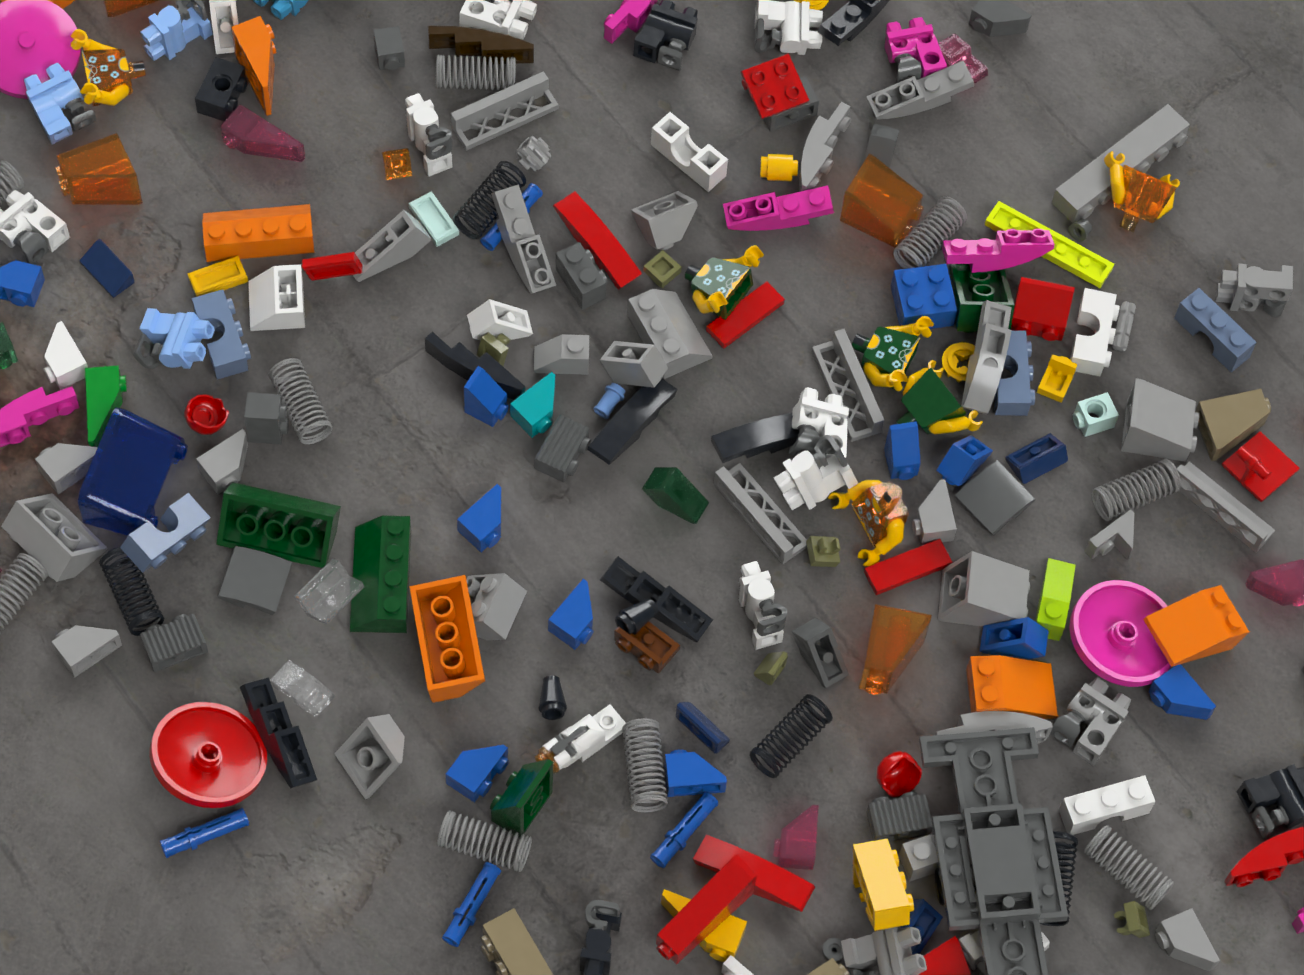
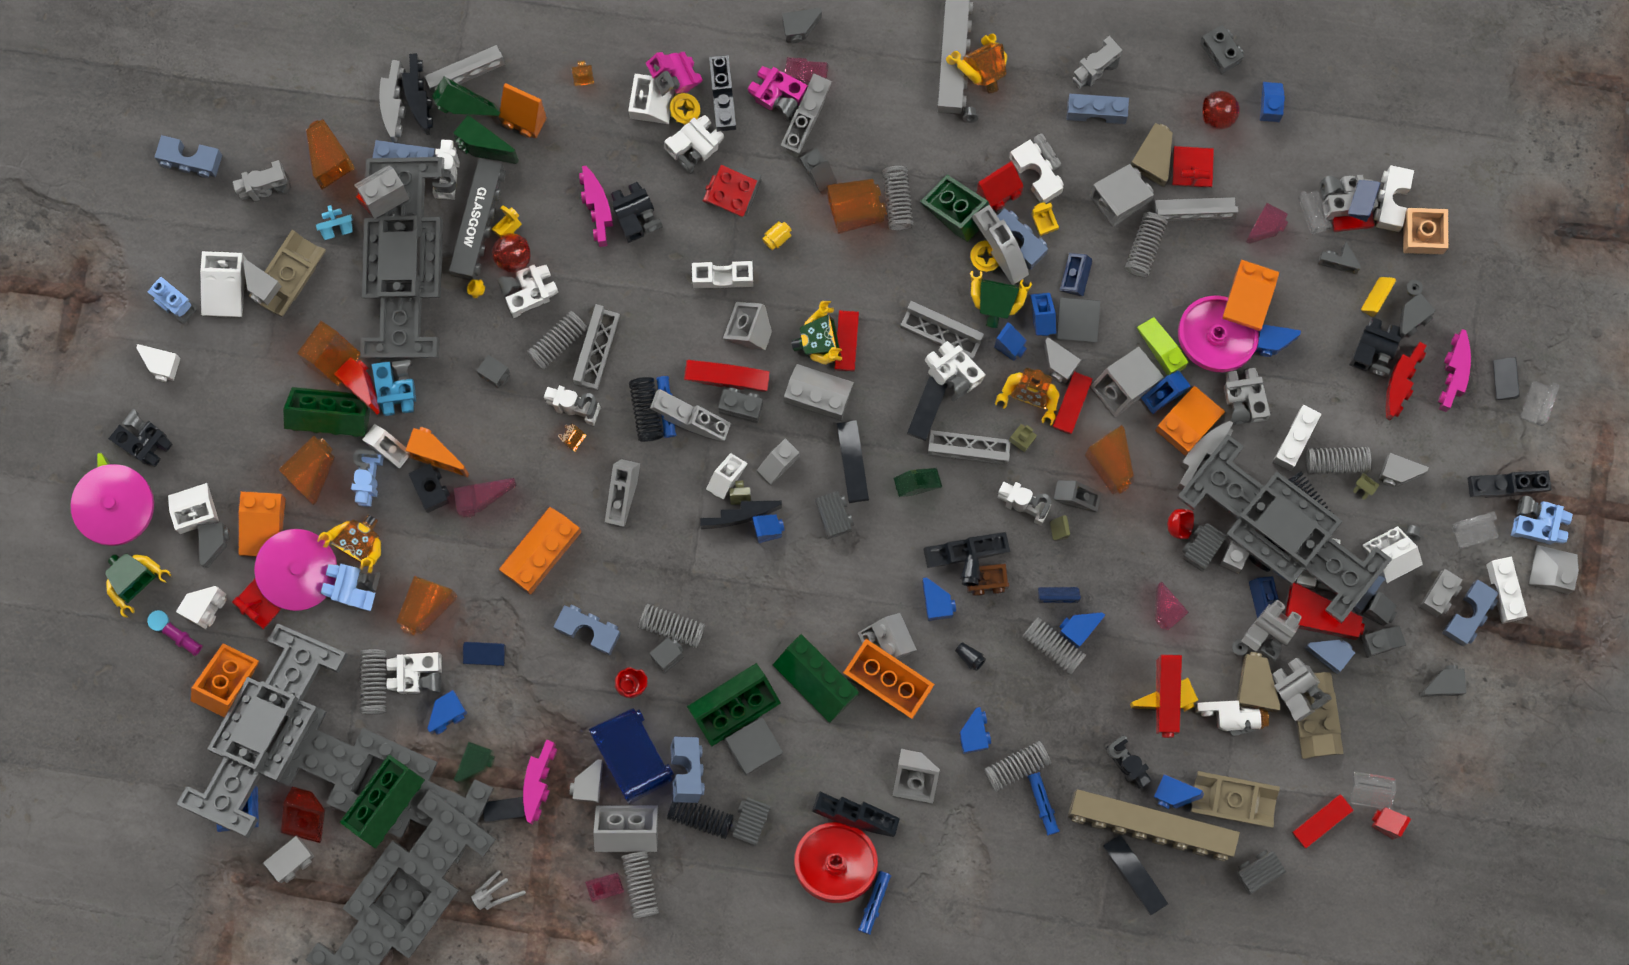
camera: 40 degrees left, 15 degrees up
(64, 359) = (521, 727): white slope -> none
(84, 646) = (707, 871): light grey slope -> none
(103, 395) = (566, 728): green slope -> none
(180, 338) = (571, 652): light blue hips -> none
(218, 276) = (547, 598): yellow tile -> none
(224, 462) = (670, 699): light grey slope -> none
(277, 299) = (596, 581): white slope -> none
(303, 688) = (841, 778): clear slope -> none
(328, 592) = (801, 715): clear panel -> none
(332, 266) = (605, 532): red tile -> none
(434, 218) = (625, 448): light aqua tile -> none
(480, 43) = (546, 315): dark brown slope -> none
(483, 520) = (837, 595): blue slope -> none
(524, 797) = (1014, 725): dark green slope -> none
(533, 153) = (640, 358): light grey gear -> none
(535, 407) = (796, 504): teal slope -> none
(582, 739) = (1009, 665): white plate -> none
(613, 394) = (828, 462): medium blue pin -> none
(634, 364) = (825, 431): light grey brick -> none
(662, 269) = (779, 359): olive tile -> none
(677, 838) = (1109, 683): blue pin -> none
(768, 758) = (1109, 583): black piece -> none
(772, 880) = (1167, 645): red slope -> none
(780, 212) = (803, 261): dark pink slope -> none
(814, 476) = (982, 403): white hips -> none
(820, 145) = (790, 209): light grey slope -> none
(881, 884) = (1238, 595): yellow wedge -> none
(891, 352) = (946, 290): torso -> none
(924, 293) = (931, 239): blue brick -> none
(1008, 250) = (947, 171): dark pink slope -> none
(1065, 253) = (963, 140): neon yellow plate -> none
(1102, 407) = (1086, 213): light aqua brick -> none
(1117, 534) = (1161, 278): light grey slope -> none

